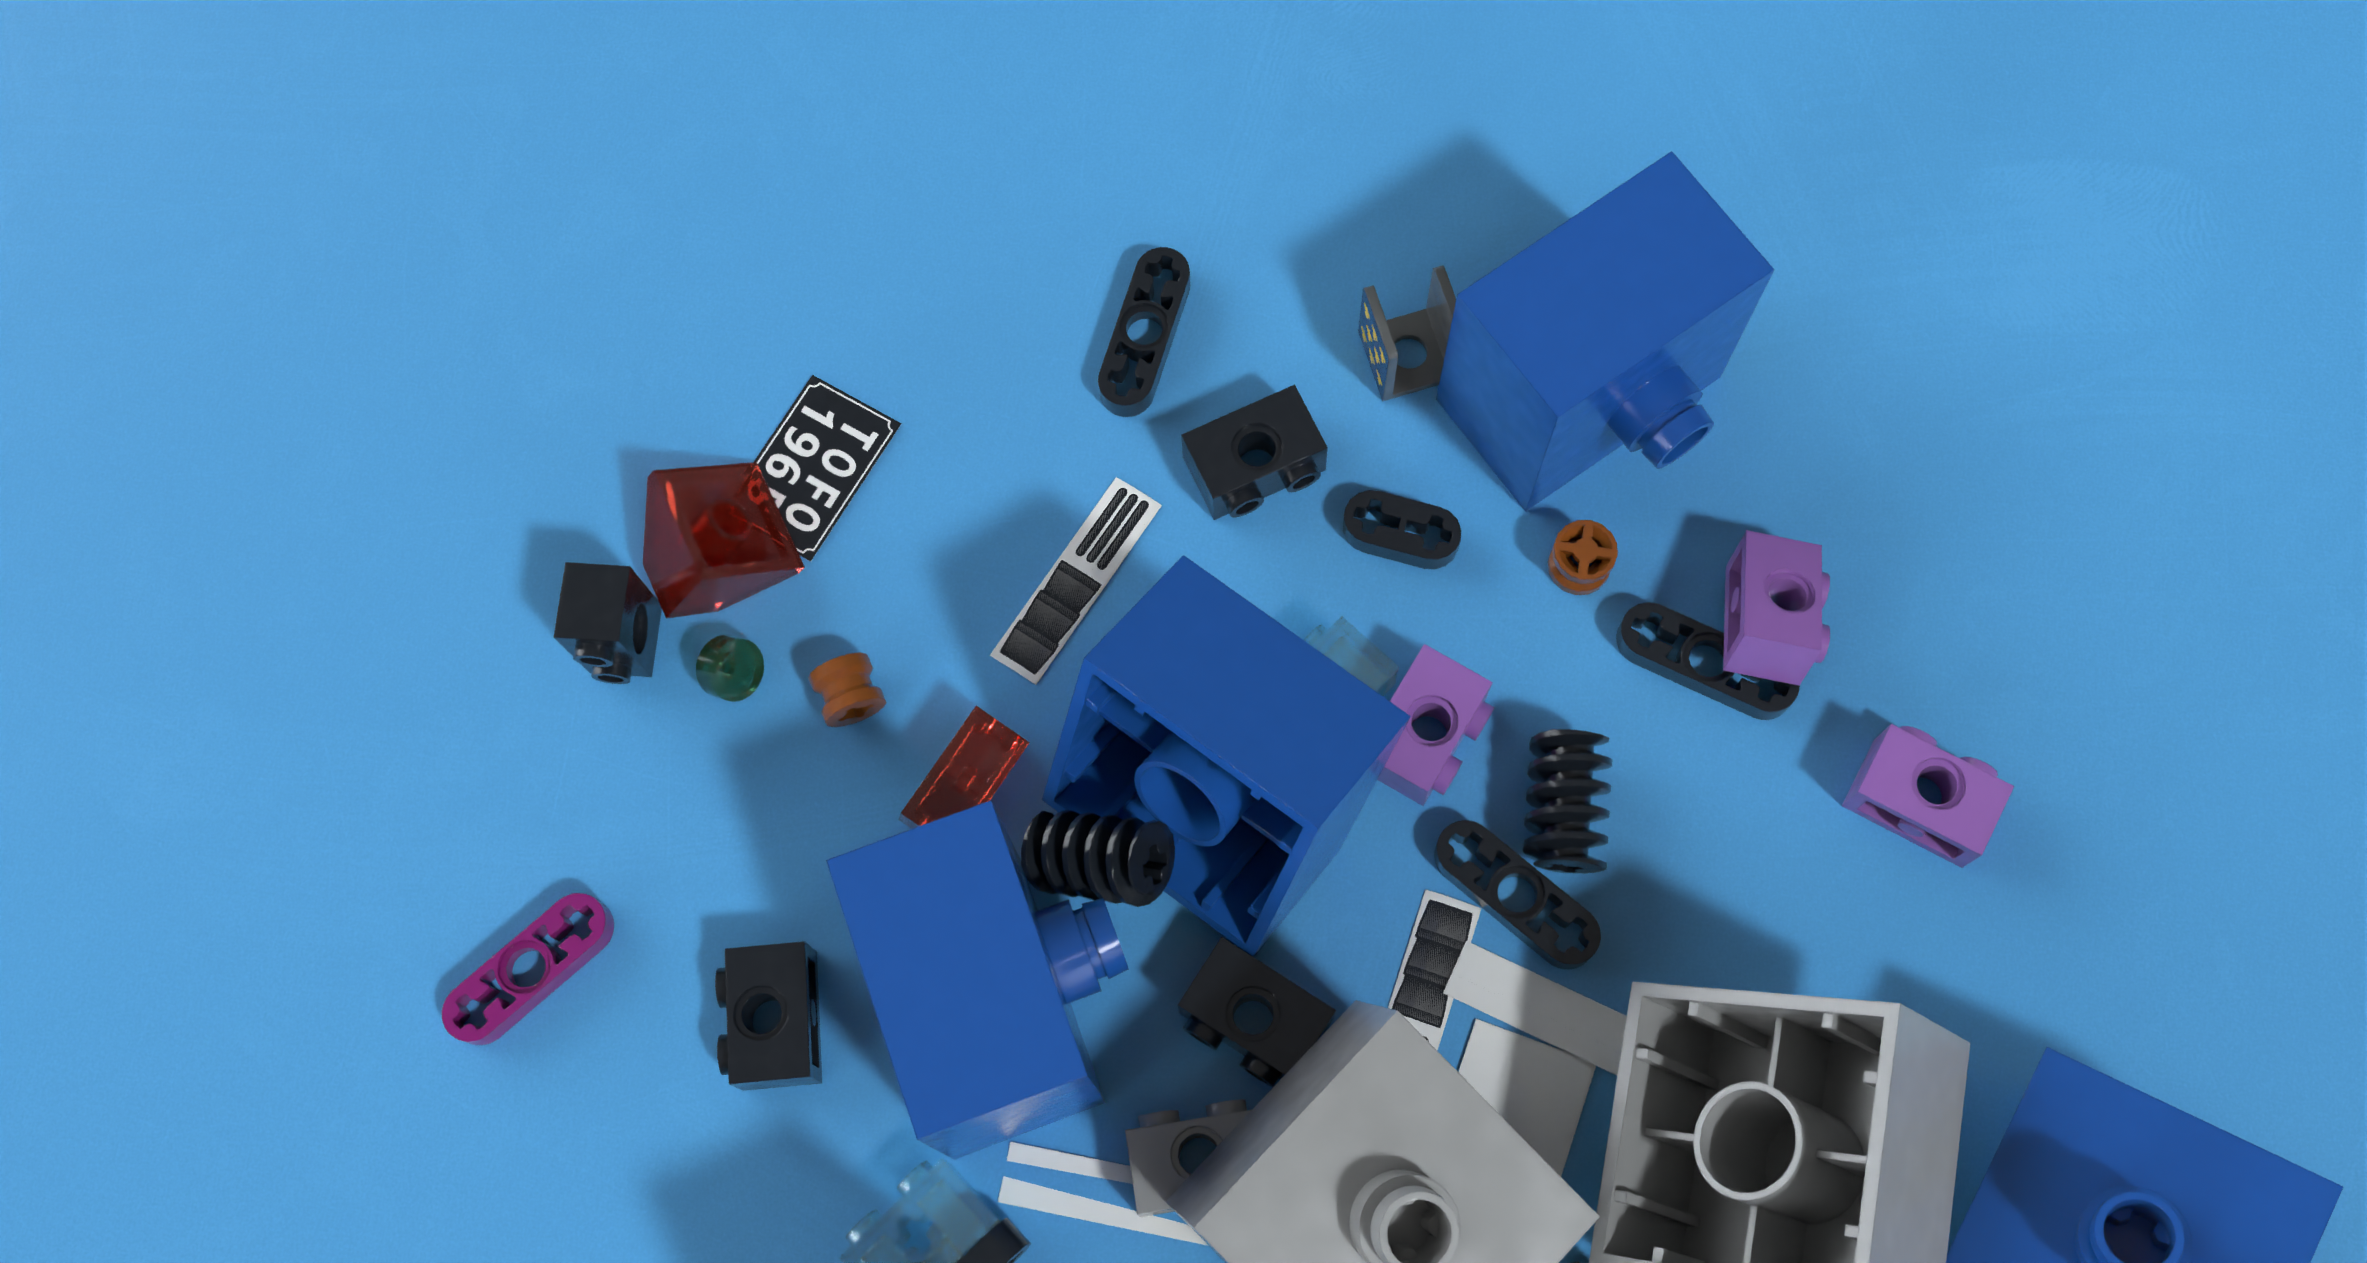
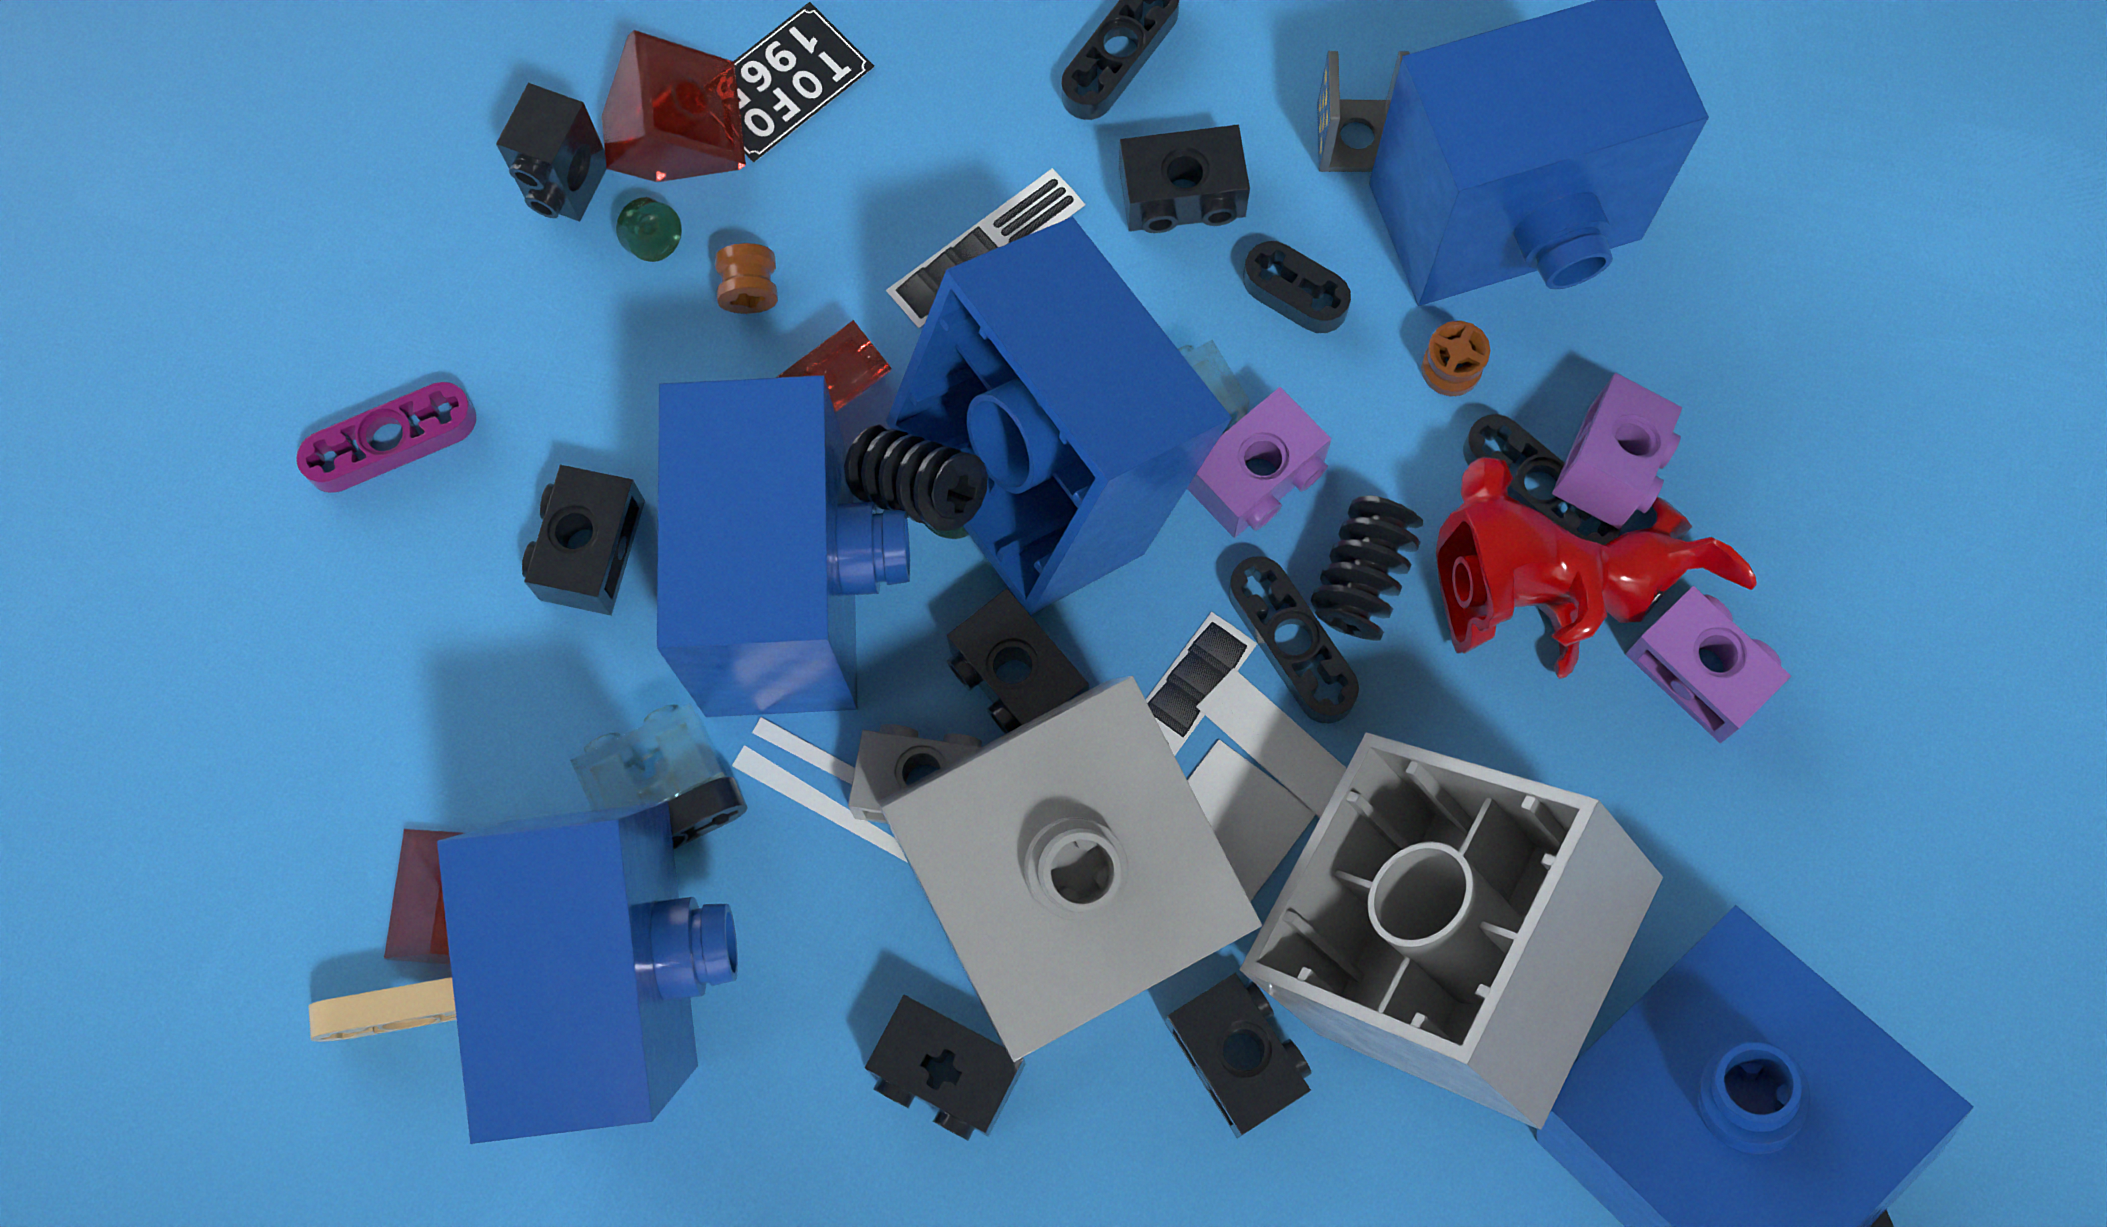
camera: 15 degrees right, 0 degrees up
(1703, 747) = (1511, 556): none -> red animal

